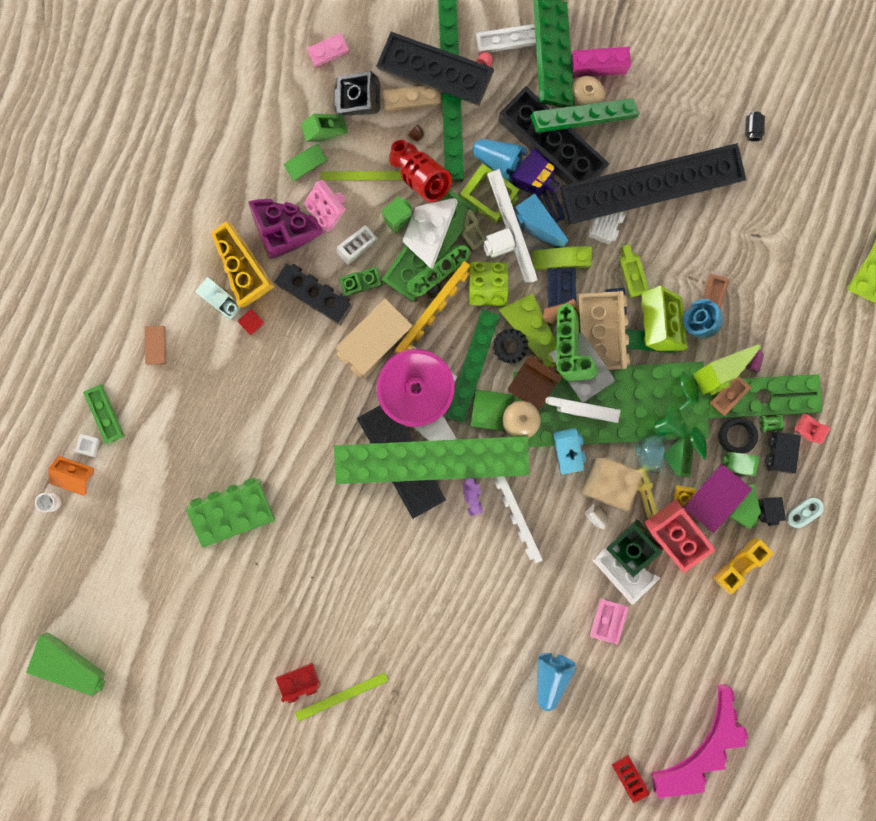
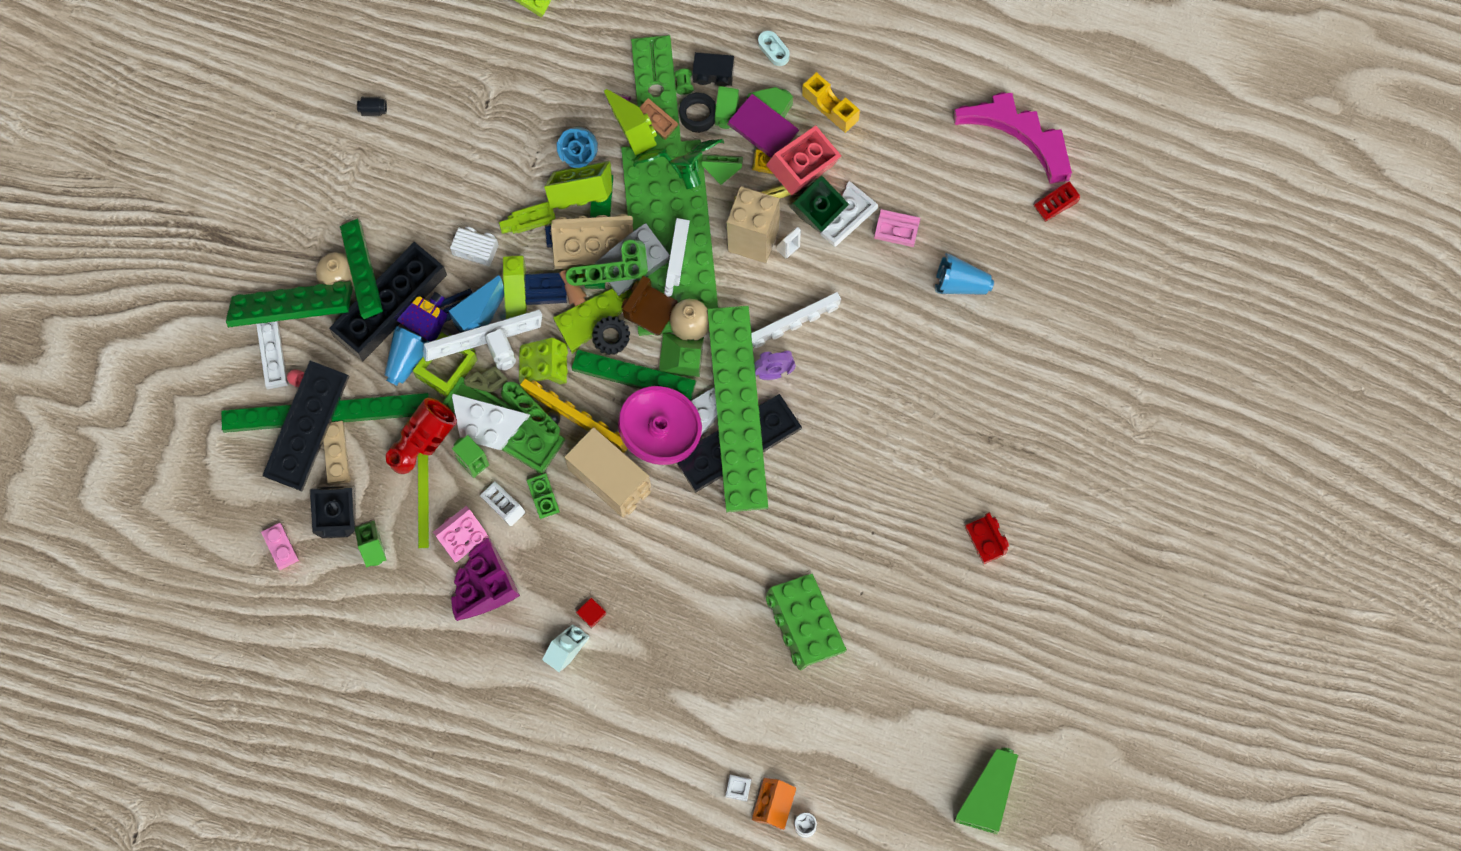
camera: 90 degrees left, 15 degrees down
(104, 414) = (701, 771): bright green tile -> none
(155, 345) = (620, 717): nougat tile -> none
(243, 270) = (528, 622): yellow wedge -> none
(290, 274) = (547, 574): black brick -> none
(305, 162) = (409, 561): bright green slope -> none
(341, 696) = (999, 495): lime sticker -> none
(416, 133) = (376, 445): reddish brown hinge -> none
(565, 441) = (721, 271): medium azure brick -> none
(601, 62) = (300, 256): dark pink brick -> none
(651, 453) = (719, 190): clear light blue cylinder -> none
(652, 183) = (435, 200): black plate -> none
(716, 289) = (544, 139): nougat tile -> none
(771, 510) = (773, 76): black brick -> none
(811, 429) = (688, 44): coral bracket -> none

